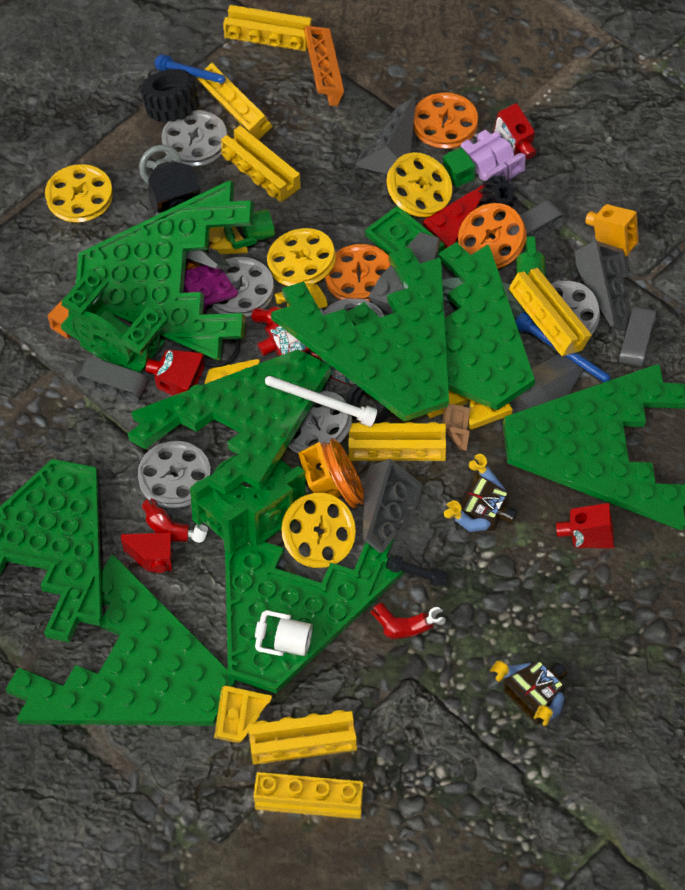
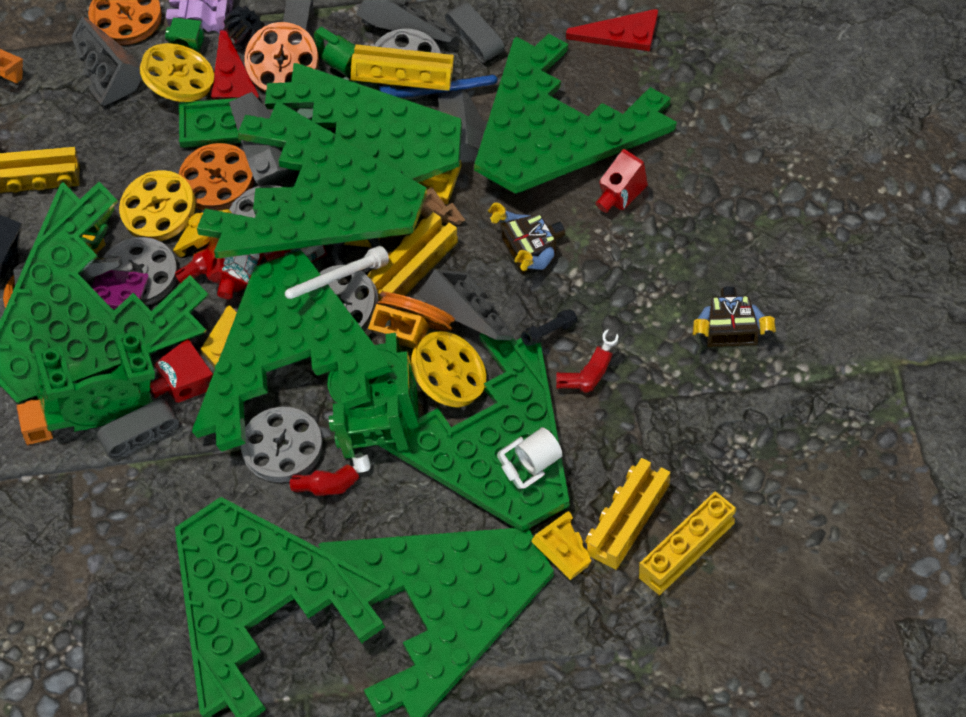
camera: 50 degrees left, 0 degrees up
(150, 550) = (343, 511): red slope -> none

